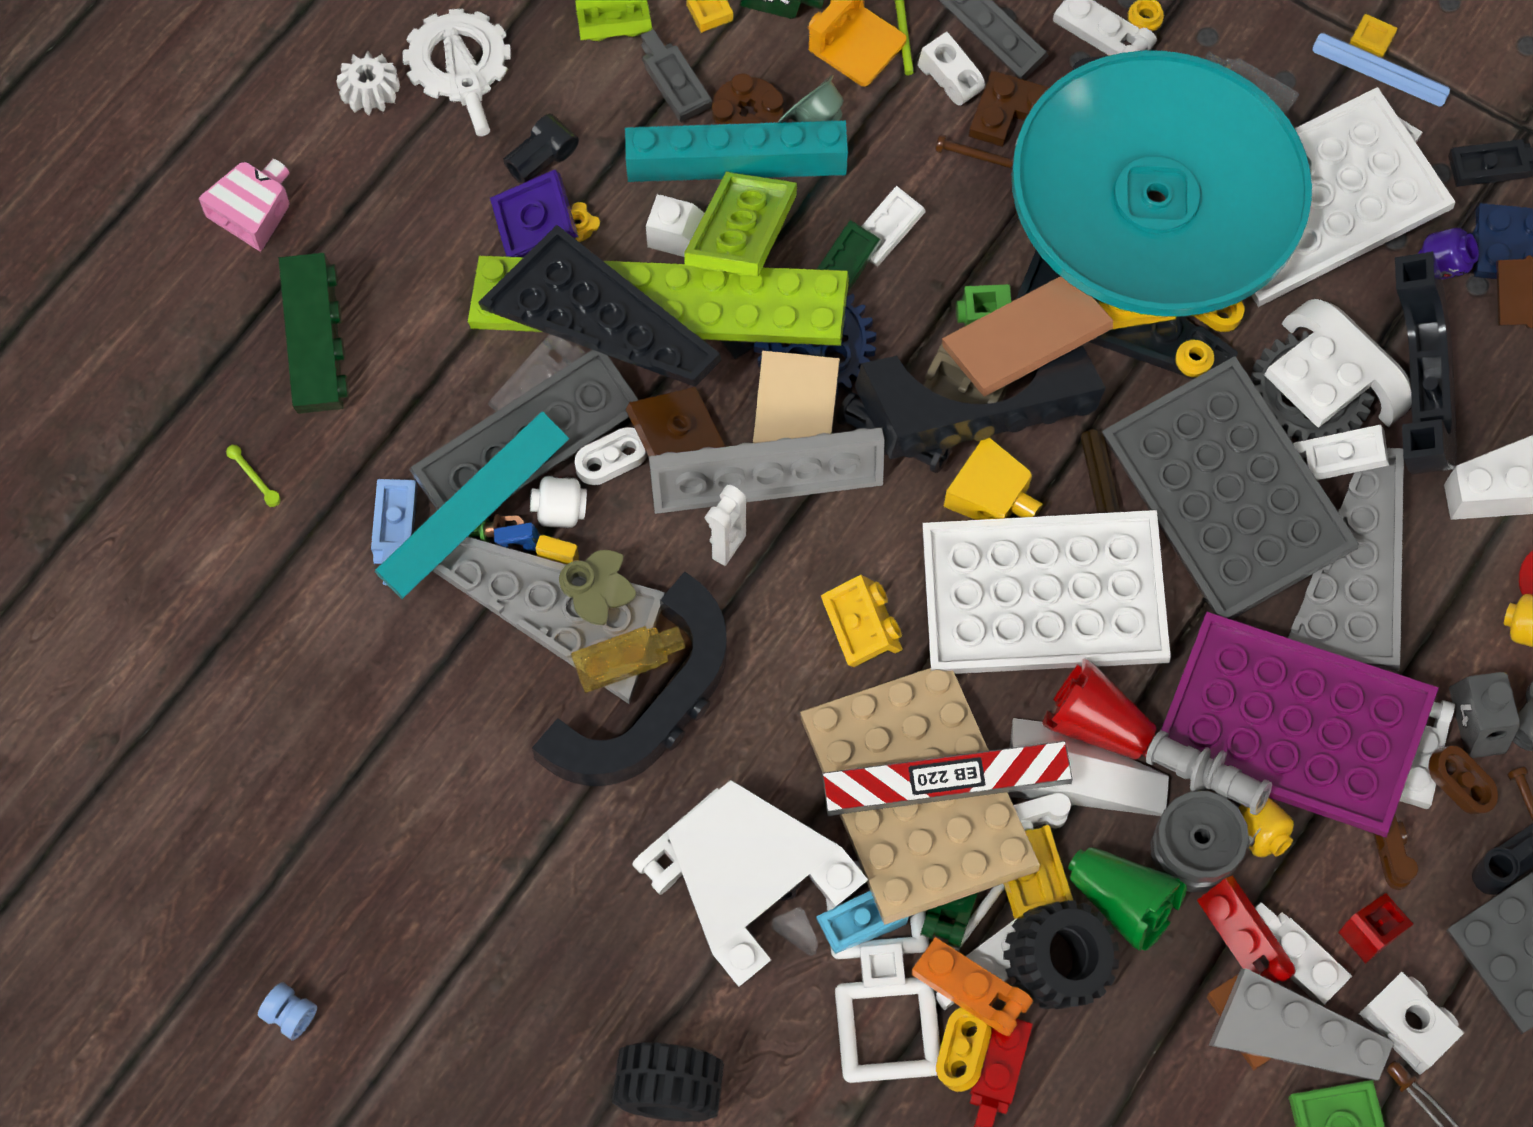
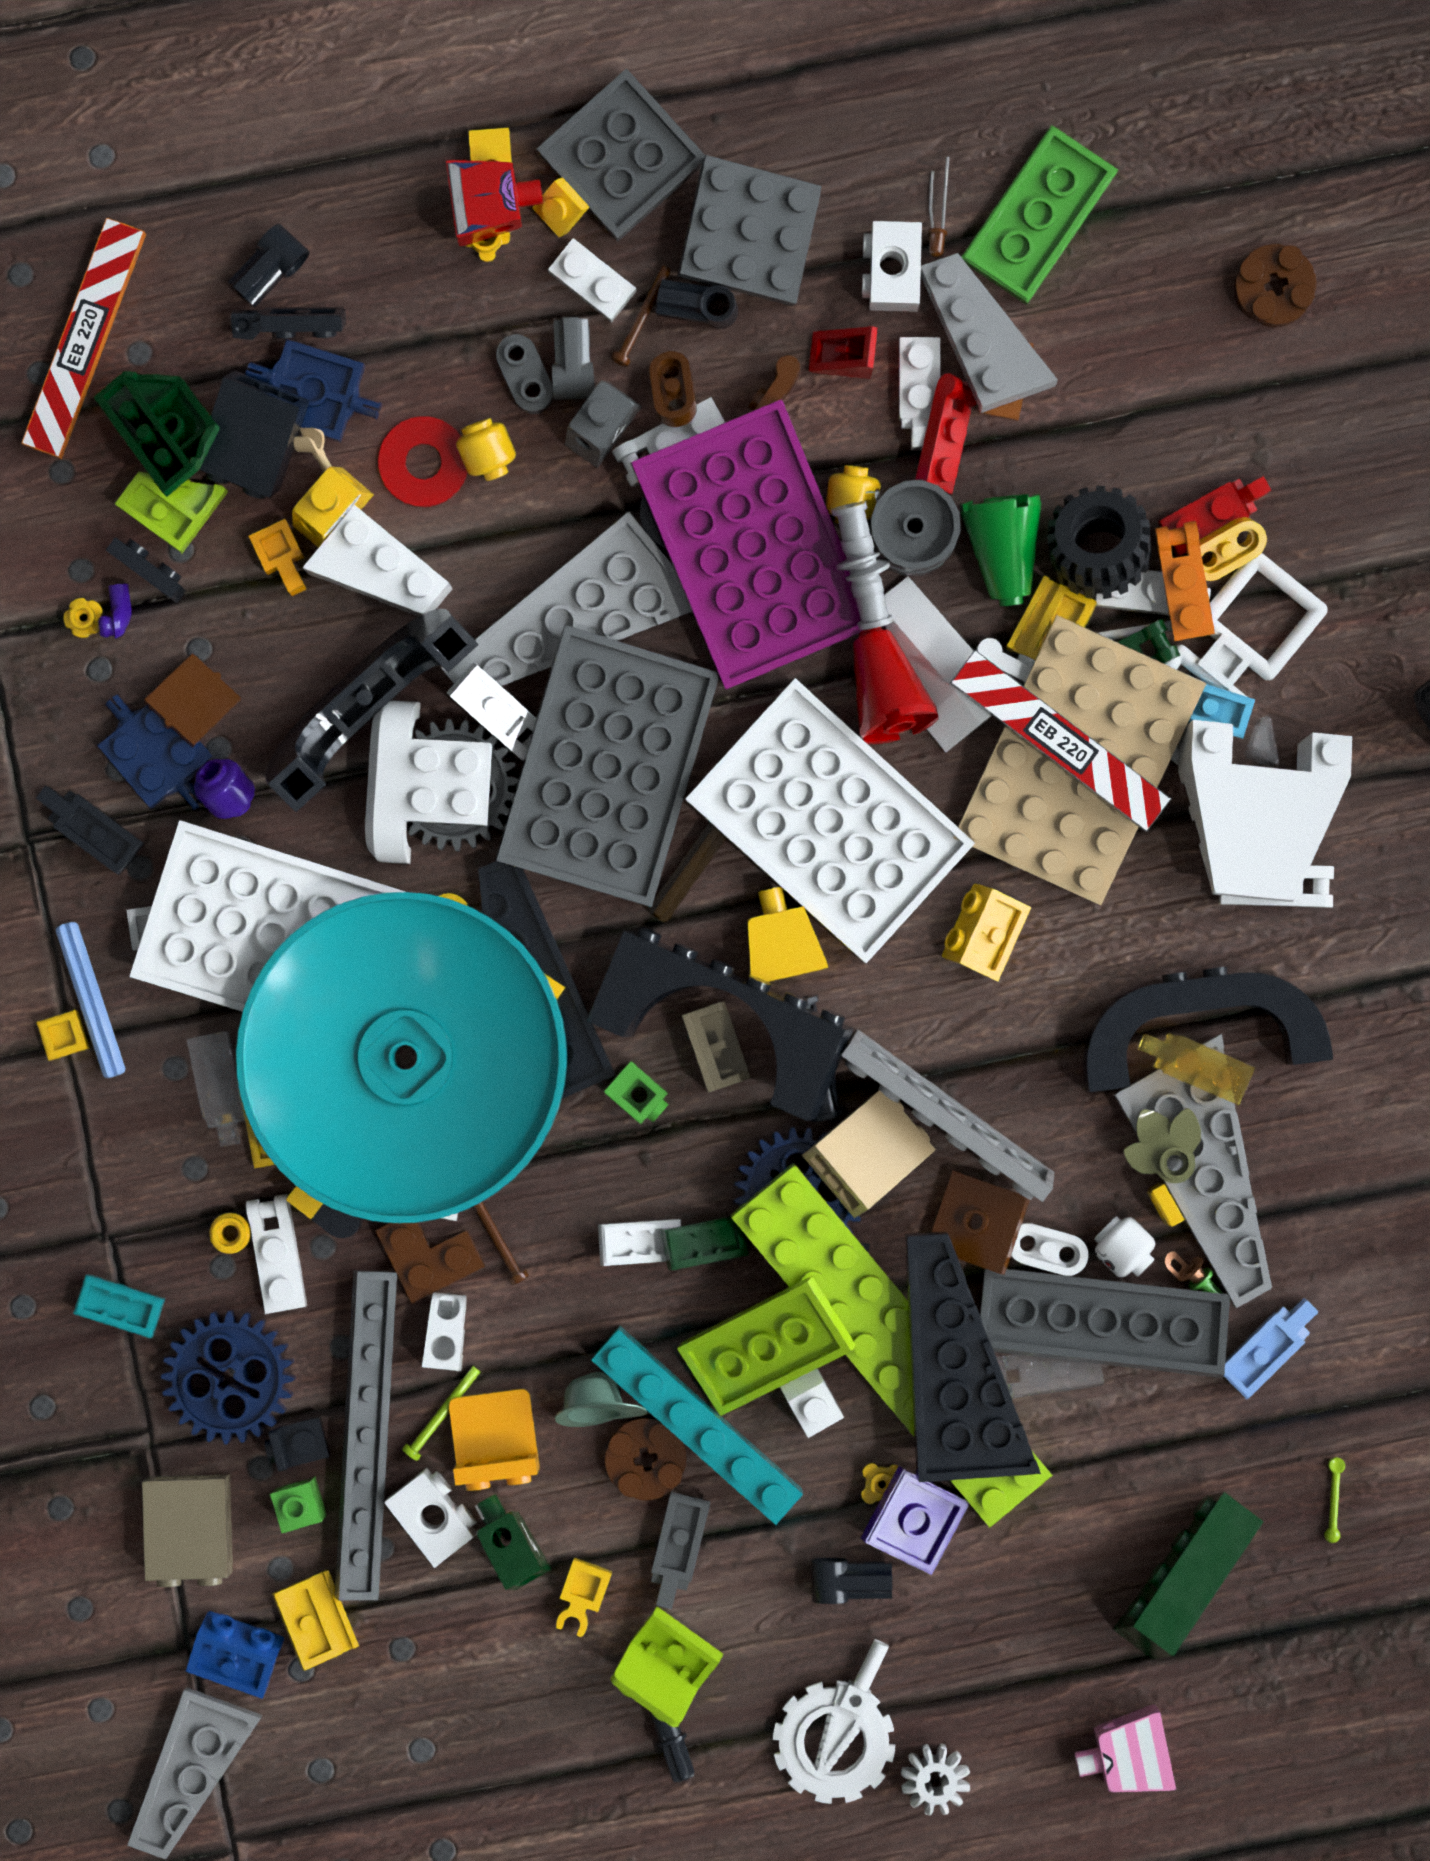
camera: 130 degrees left, 20 degrees up
(471, 505) = (1200, 1301): teal tile -> none
(520, 534) = (1183, 1245): blue tile -> none
(727, 524) = (1030, 1095): white plate -> none
(1026, 334) = (643, 1031): nougat tile -> none
(1192, 367) = (534, 899): yellow plate -> none

